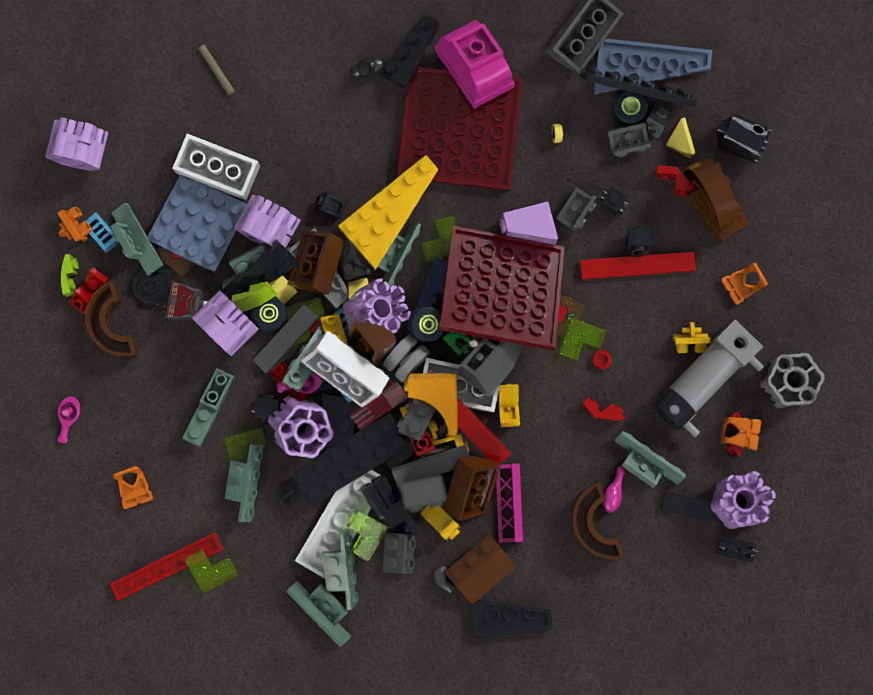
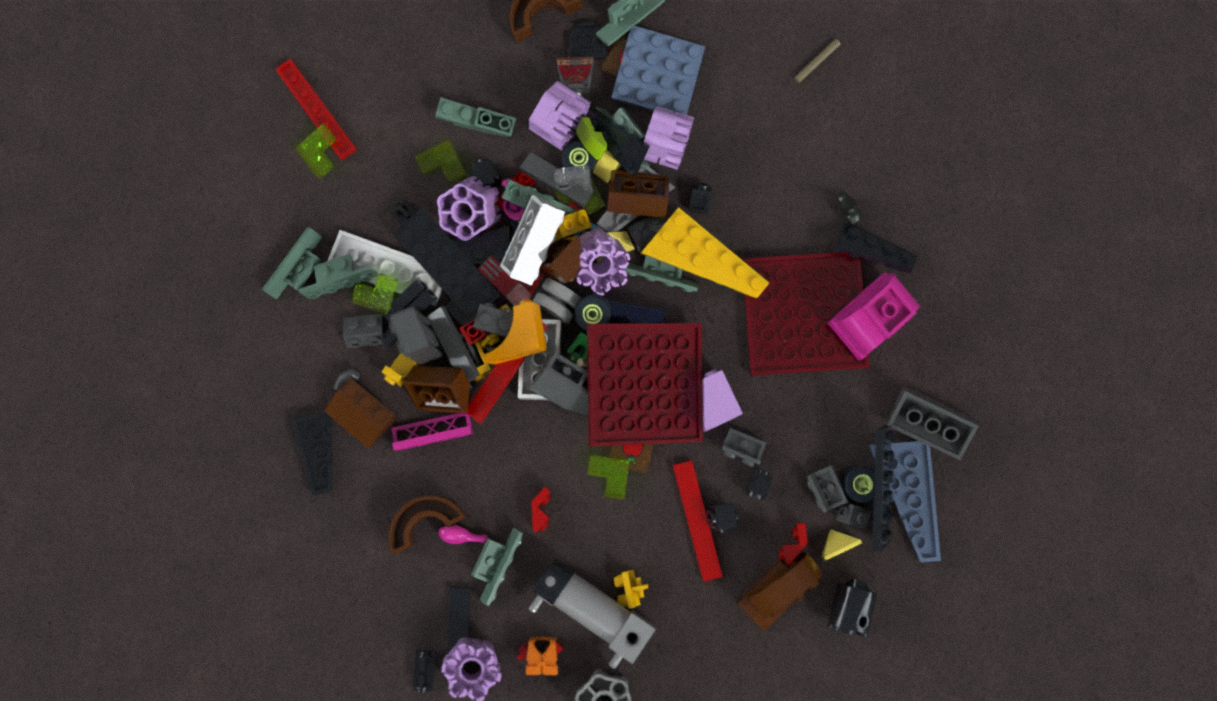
camera: 90 degrees right, 0 degrees up
(133, 494) = (379, 63): orange piece -> none
(216, 167) = (716, 78): white brick -> none
(243, 482) = (408, 166): sand green bracket -> none
(288, 320) = (572, 177): none -> clear leg
(440, 247) = (676, 313): clear neon green tile -> none
(509, 405) = (527, 413): yellow bracket -> none
(557, 133) = (819, 413): light yellow tile -> none
(601, 359) = (593, 500): red tile -> none
(737, 287) = (693, 629): orange piece -> none

